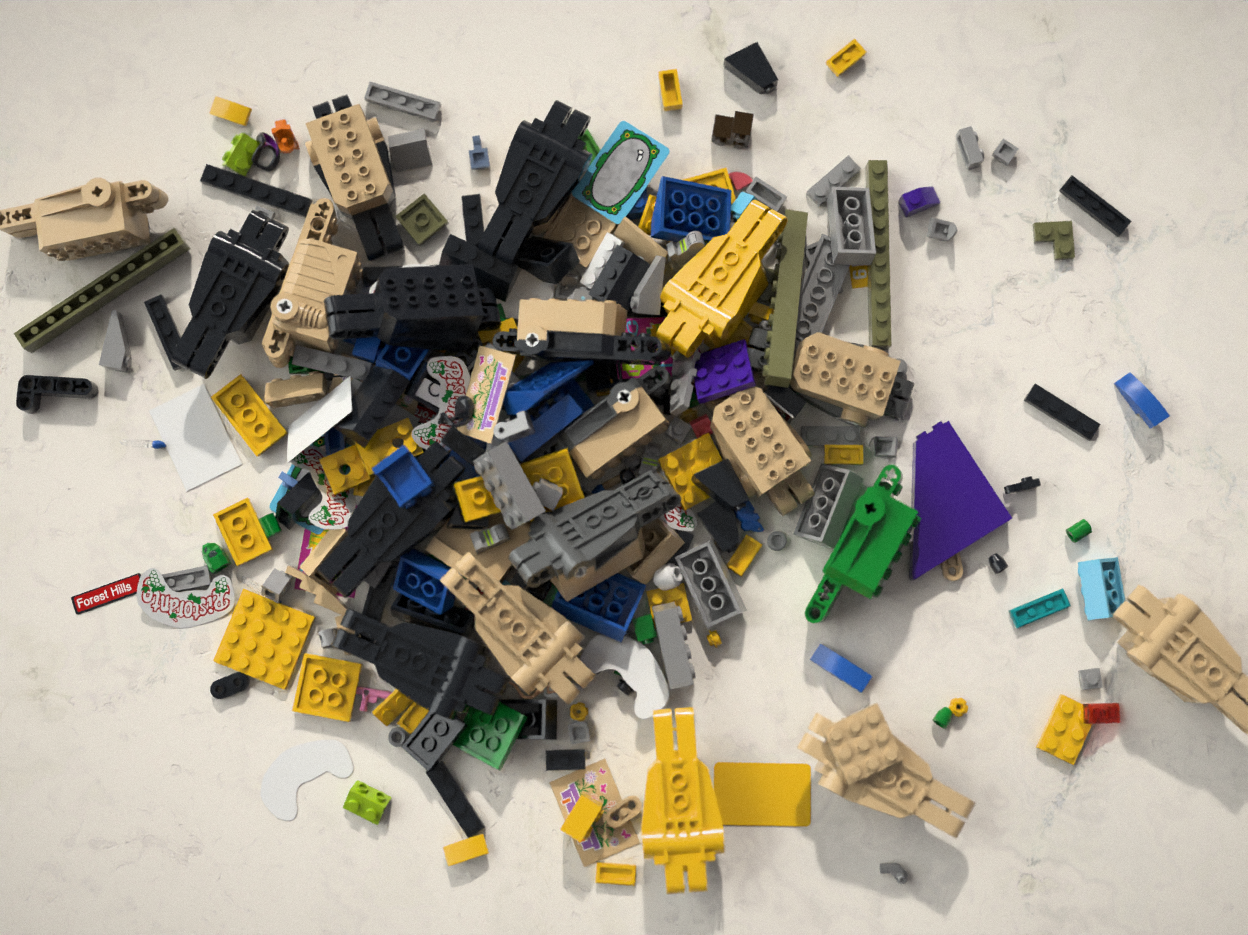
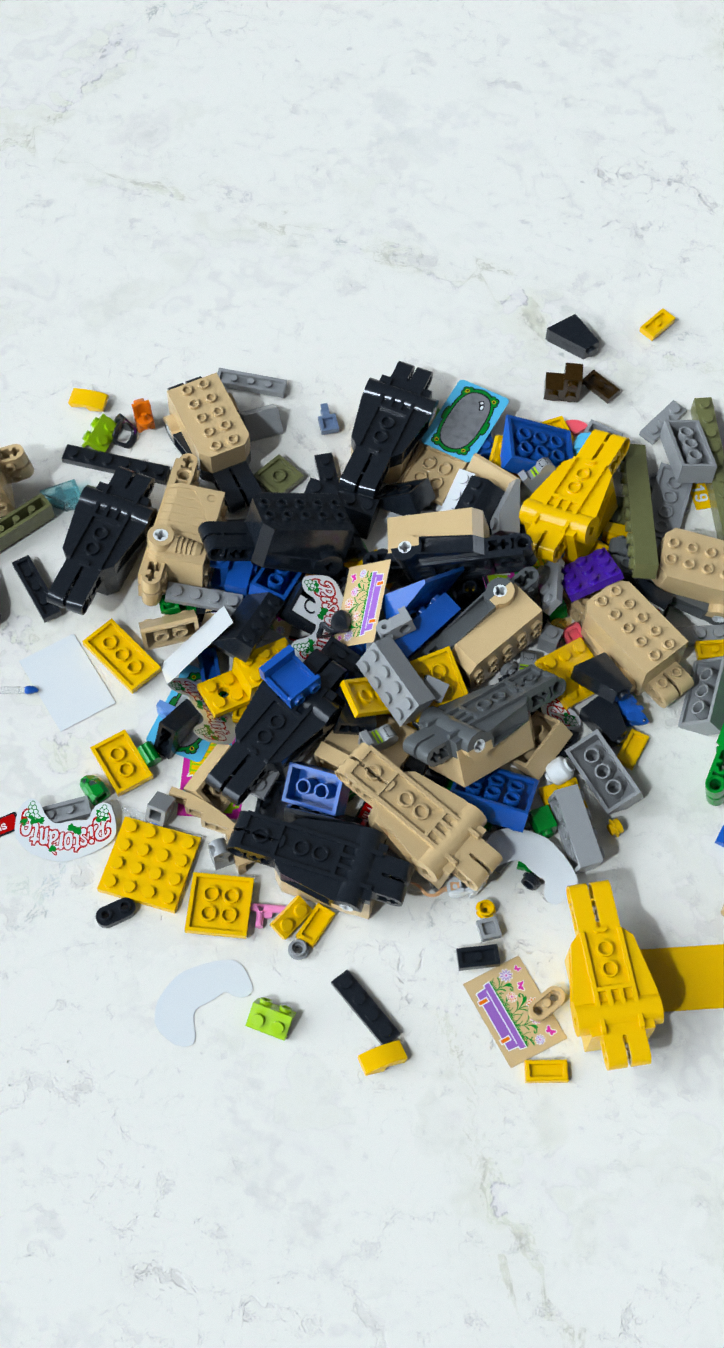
camera: 10 degrees left, 20 degrees down
(200, 226) = (63, 496): none -> clear light blue slope
(433, 739) = (337, 943): plate -> none
(491, 736) = (396, 932): green plate -> none
(541, 717) = (432, 919): black slope -> none
(582, 816) = (505, 1005): yellow piece -> none
(670, 89) = (500, 358): yellow piece -> none
(773, 132) = (600, 386): none -> dark brown plate
(776, 541) = (662, 733): light grey tile -> none

